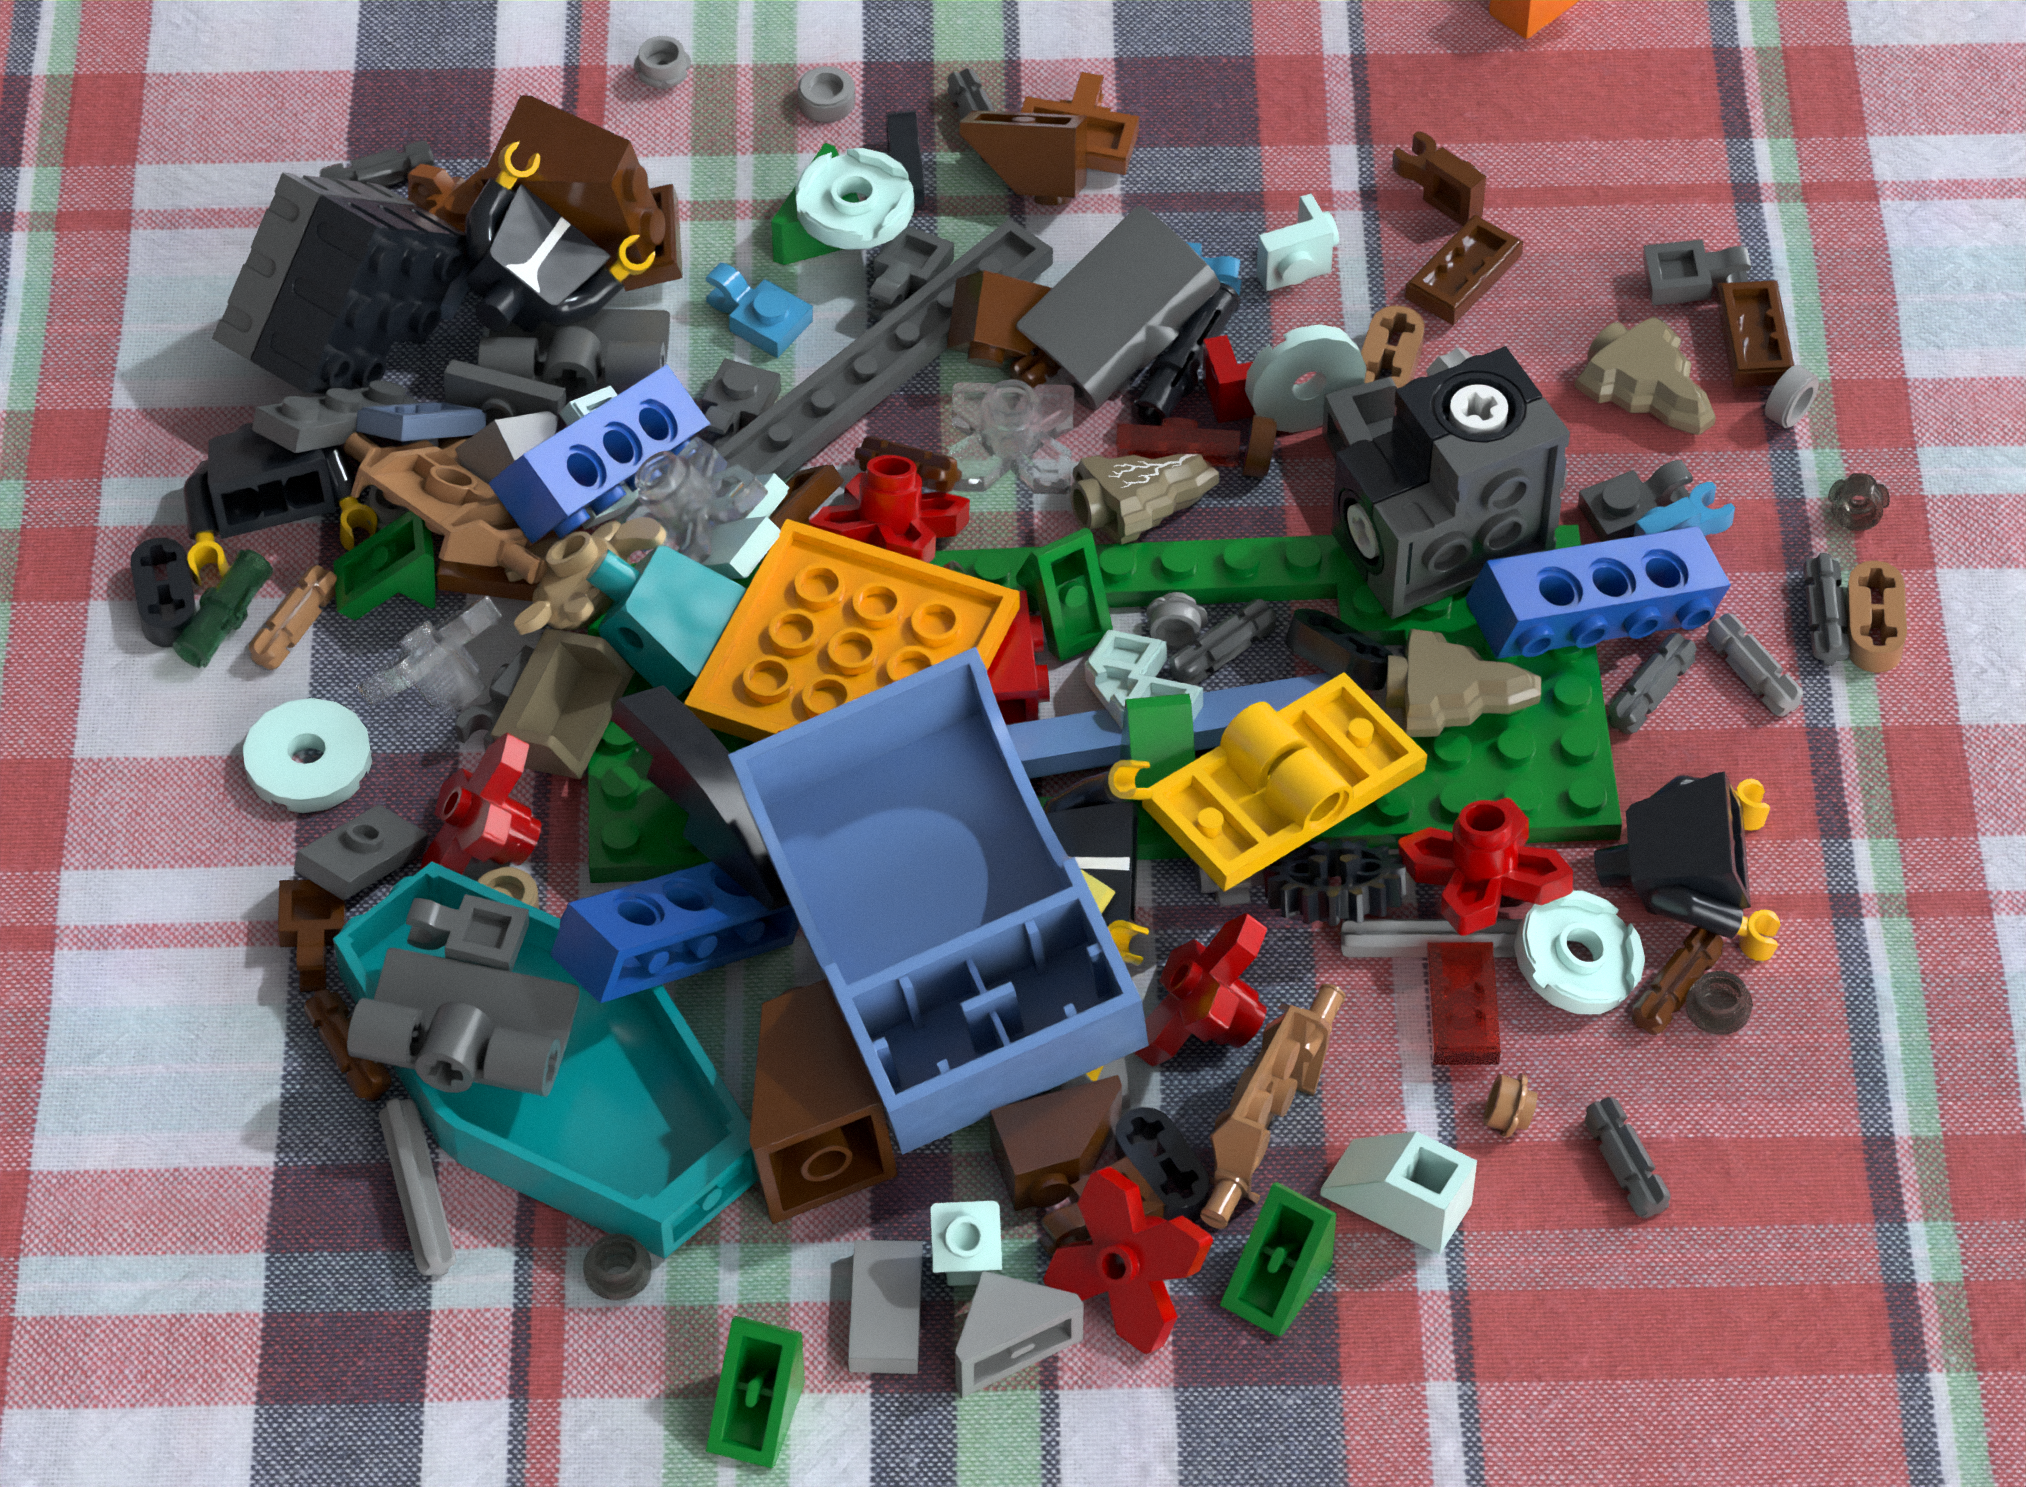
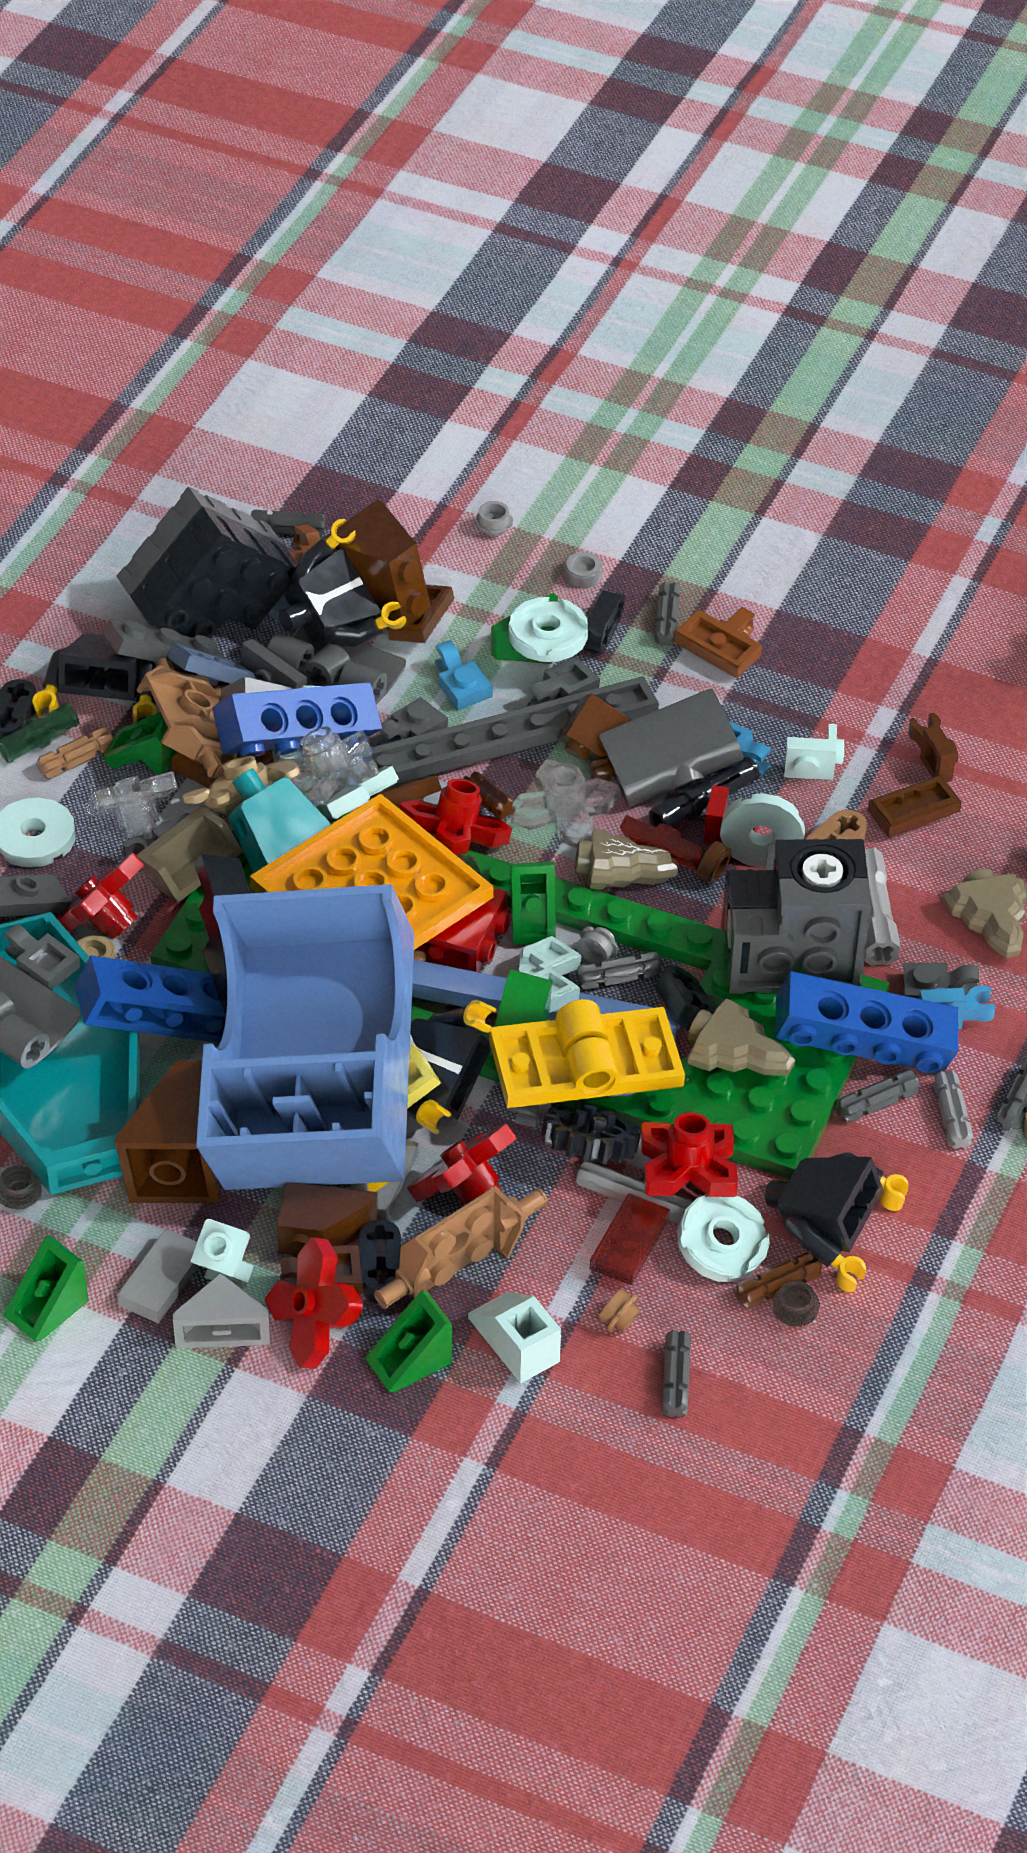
camera: 25 degrees right, 5 degrees down
(1032, 151) = (679, 642): reddish brown slope -> none

